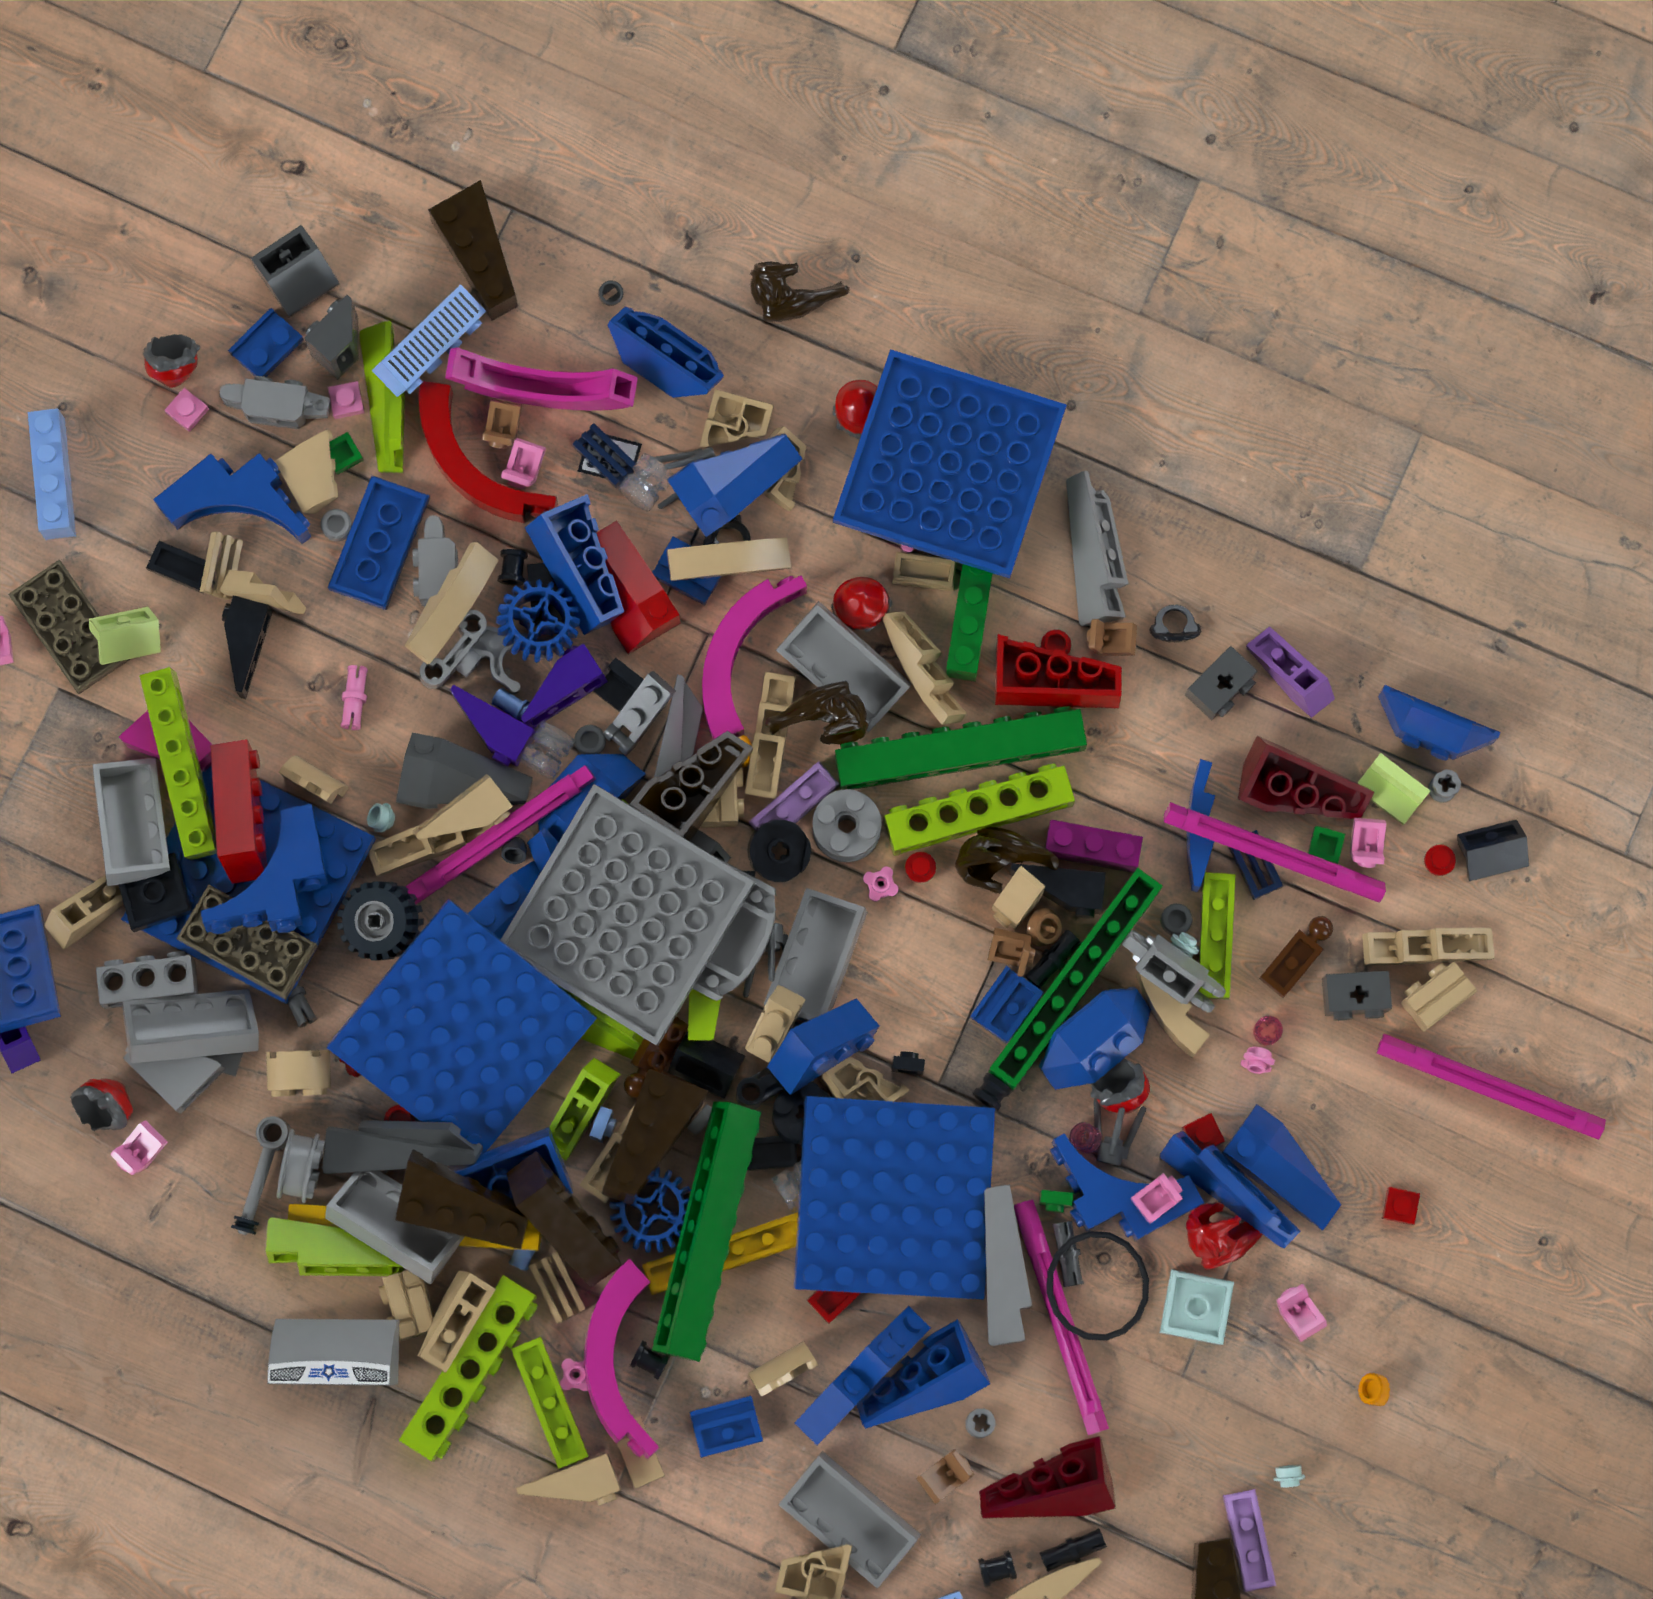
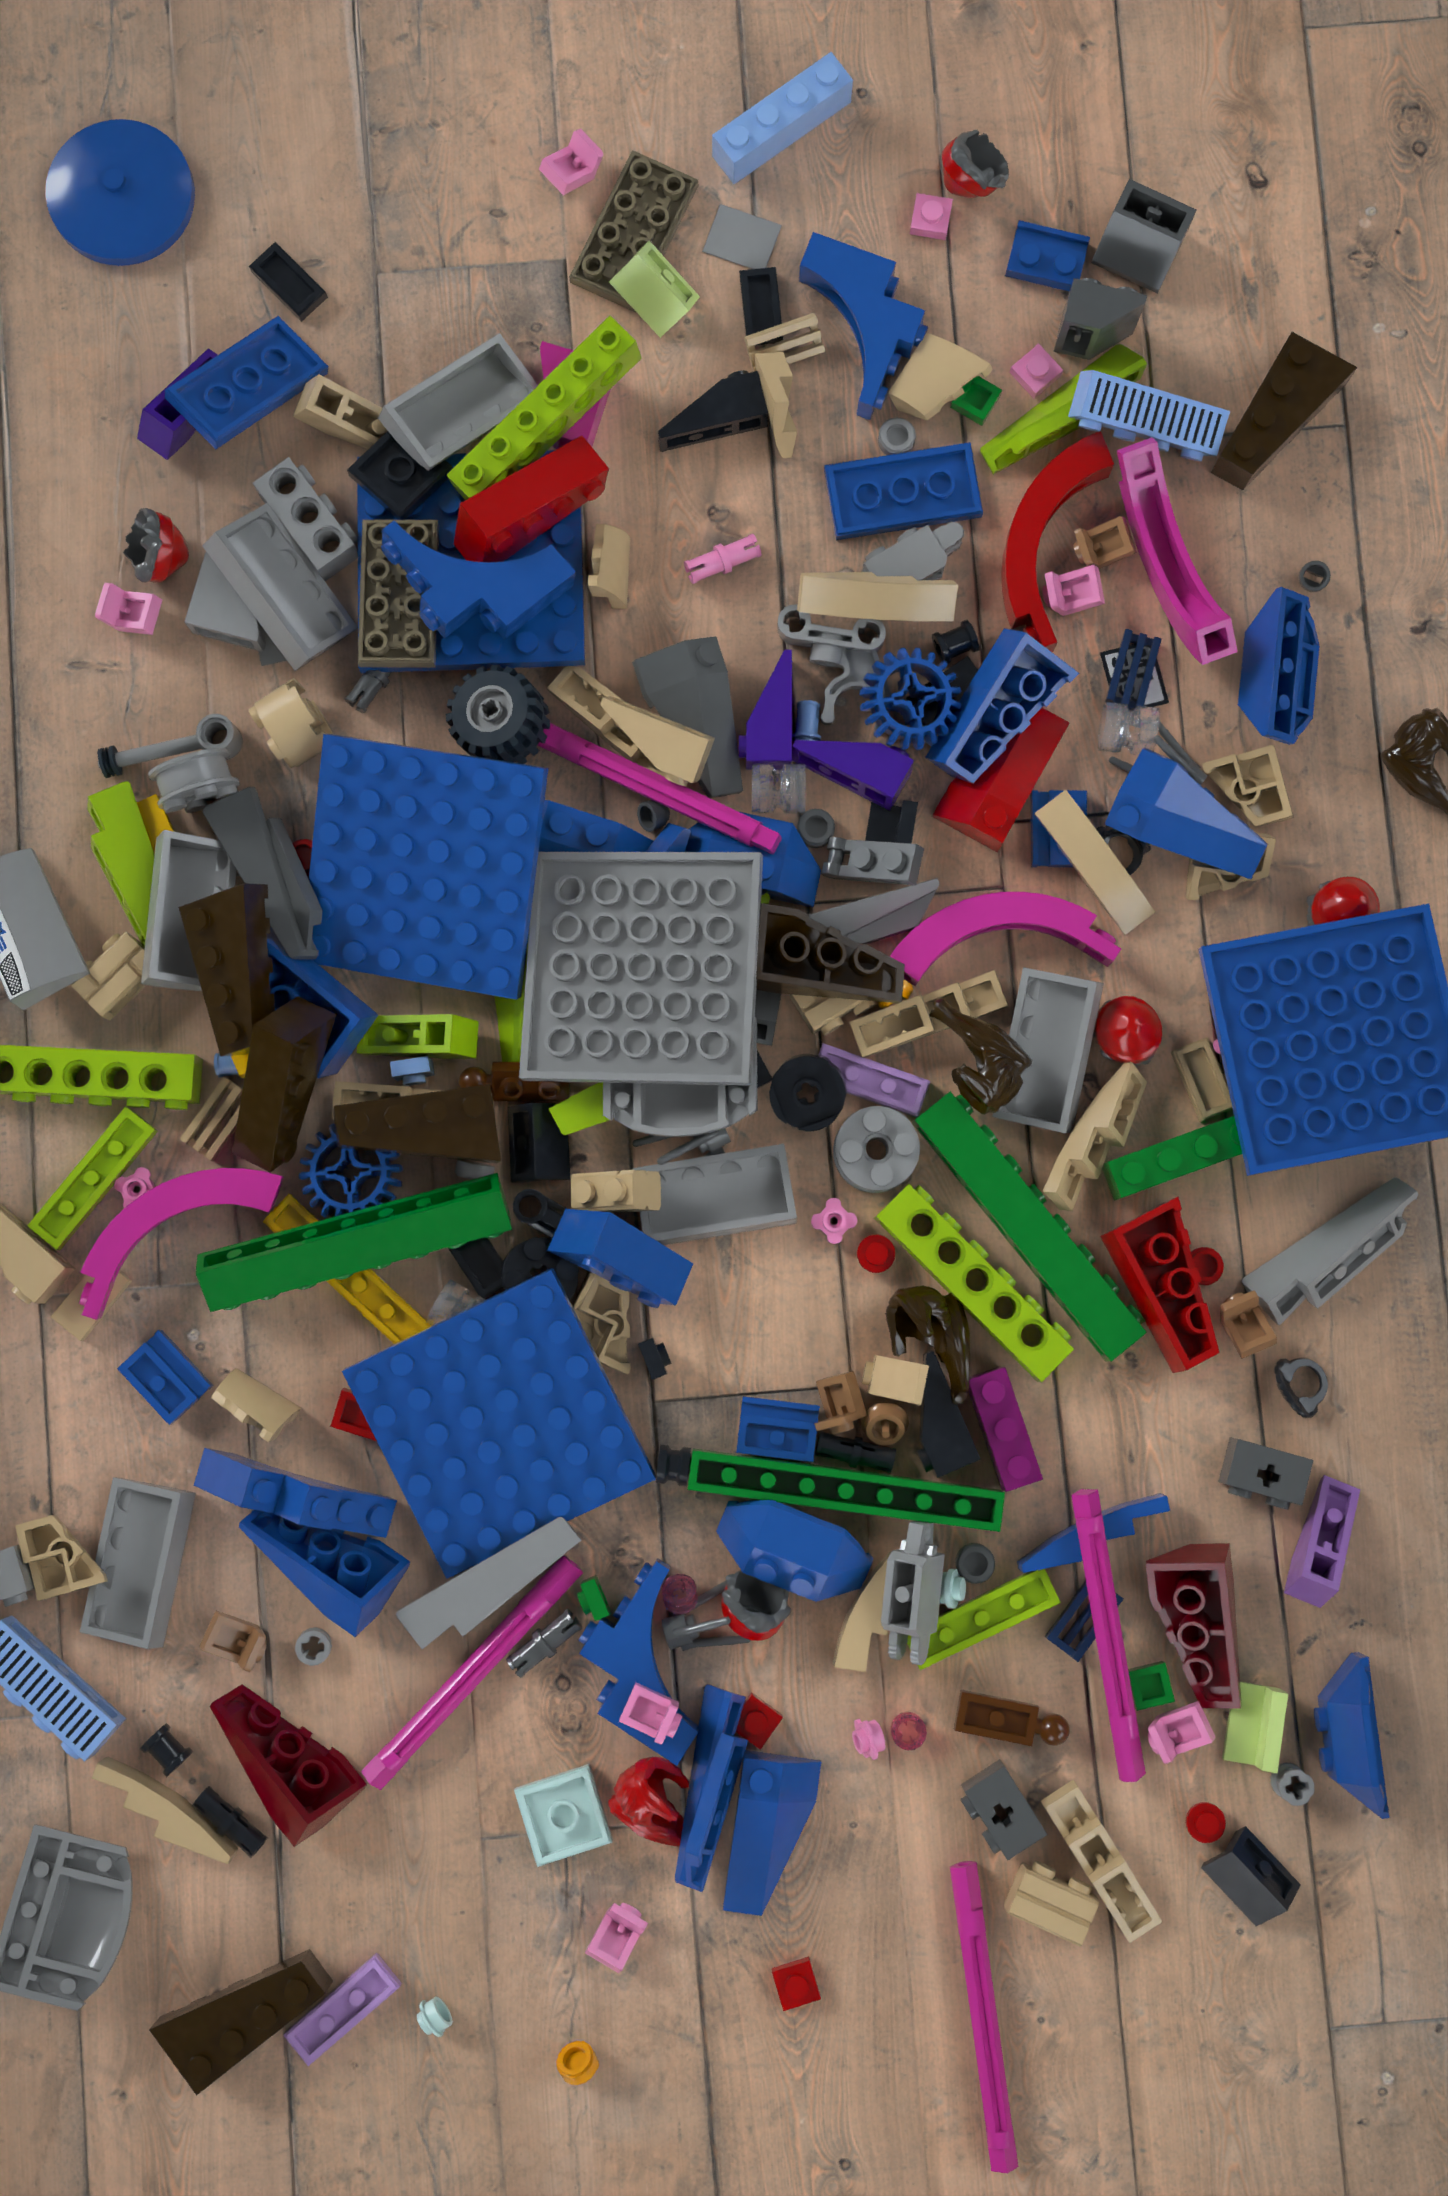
camera: 65 degrees right, 5 degrees up
(120, 552) = (741, 238): none -> light grey sticker
(275, 402) = (990, 299): light grey hinge -> none
(381, 817) = (610, 658): light aqua plate -> none
(455, 1319) = (119, 1030): tan slope -> none
(650, 1360) = (187, 1255): black bush -> none
(1145, 1287) = (531, 1753): black piece -> none

